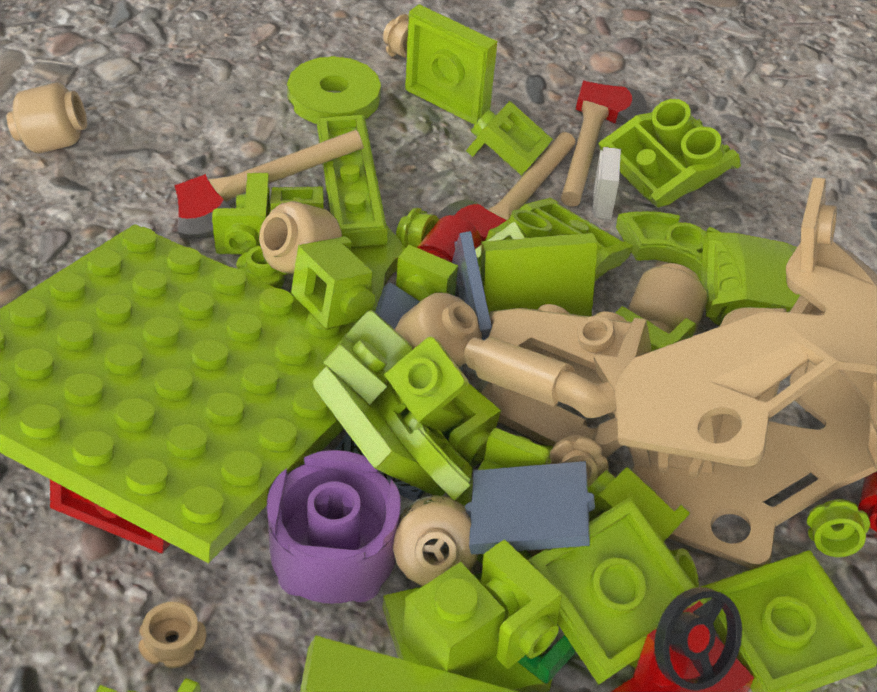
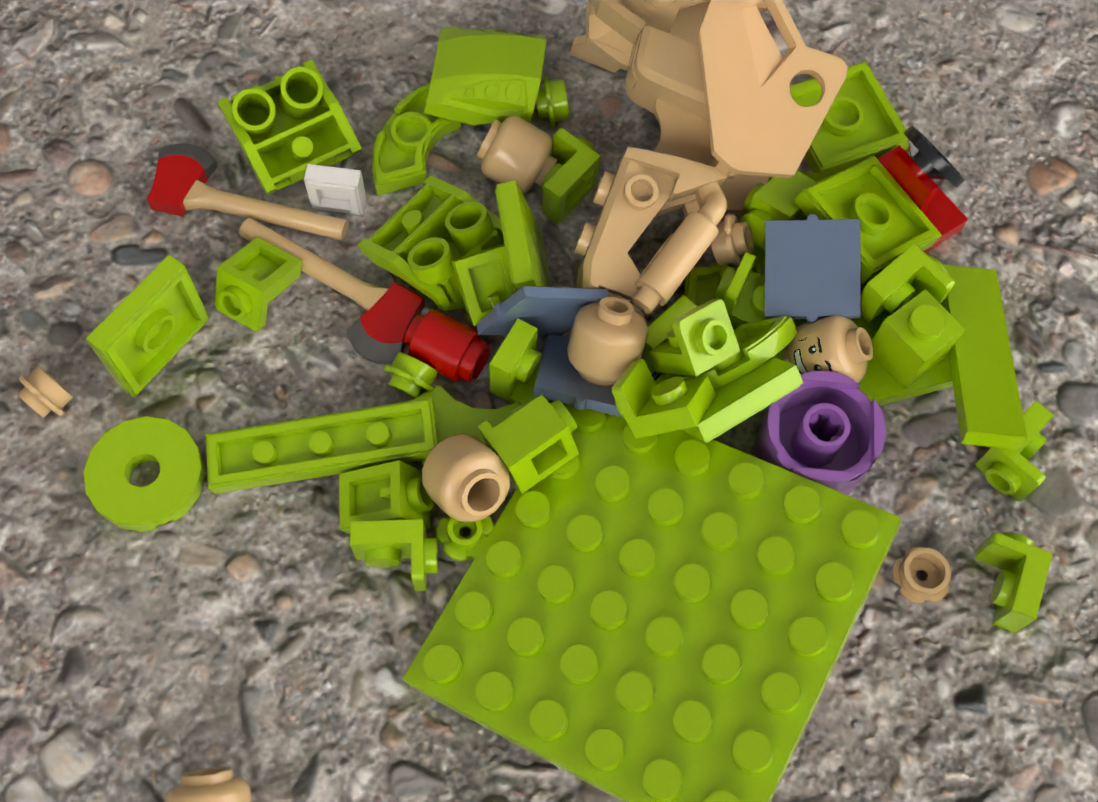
camera: 90 degrees left, 20 degrees up
(202, 195) = (348, 610): piece -> none

